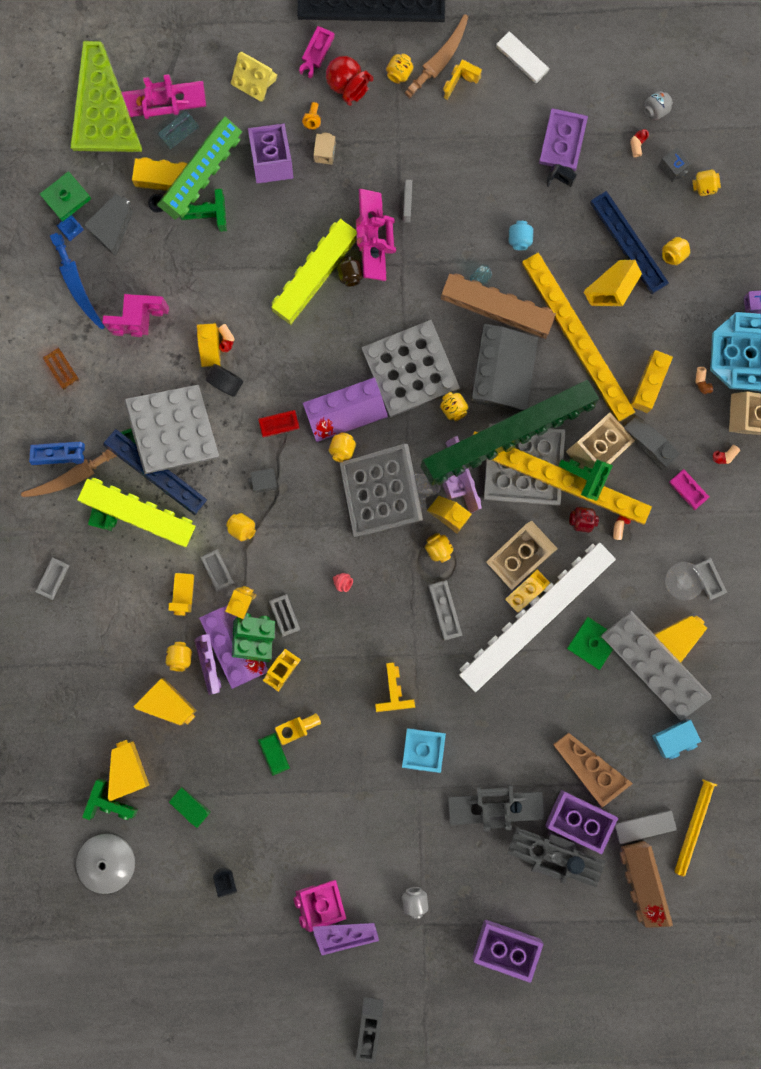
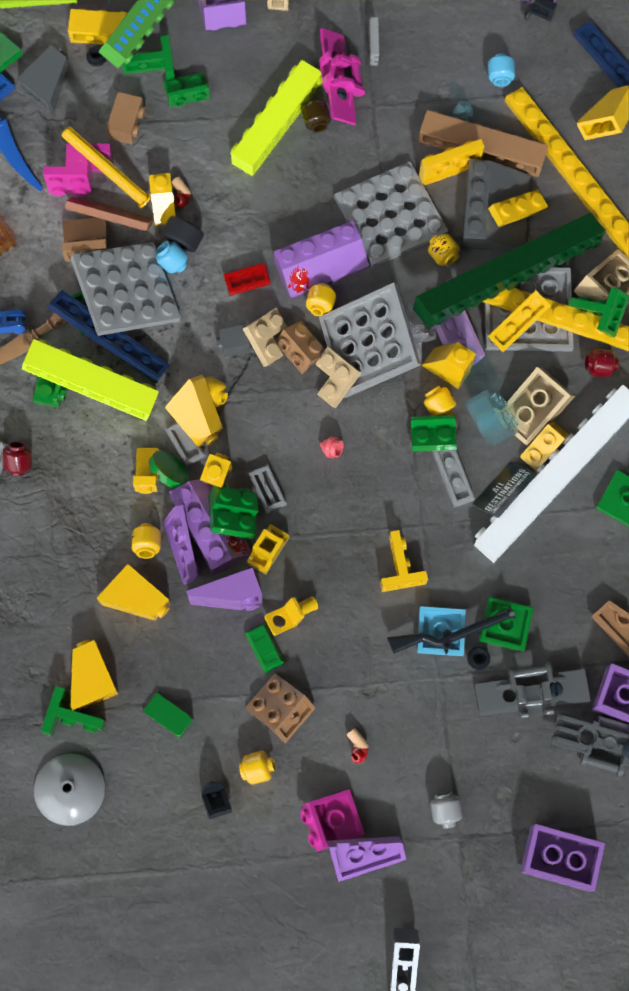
camera: 10 degrees left, 10 degrees down
(72, 578) = (17, 458): none -> dark red head
(138, 377) = (83, 236): none -> medium nougat bracket
(157, 316) = (106, 166): none -> yellow axle
(161, 356) = (109, 213): none -> tile
(180, 265) = (125, 118): none -> medium nougat brick
(200, 596) = (169, 469): none -> green tile
(214, 401) = (171, 257): none -> medium azure head
(227, 547) = (196, 412): none -> yellow slope
(236, 239) = (186, 90): none -> green bracket
(248, 709) = (231, 592): none -> medium lavender slope
(260, 857) = (257, 767): none -> yellow head
(283, 807) = (280, 707): none -> medium nougat bracket
(287, 478) = (261, 334): none -> tan plate
(322, 488) = (300, 346): none -> medium nougat bracket
(347, 845) = (360, 746): none -> arm
(355, 519) = (341, 377): none -> tan plate
(387, 760) = (402, 642): none -> black piece
(431, 576) = (433, 433): none -> green bracket
(458, 779) = (483, 653): none -> black plate
(466, 324) = (449, 162): none -> yellow plate
(479, 747) = (511, 632): none -> green plate
(482, 566) = (491, 417): none -> clear light blue brick
(488, 629) = (504, 489): none -> black sticker
(513, 480) = (519, 321): none -> yellow plate
(523, 371) = (518, 207): none -> yellow plate

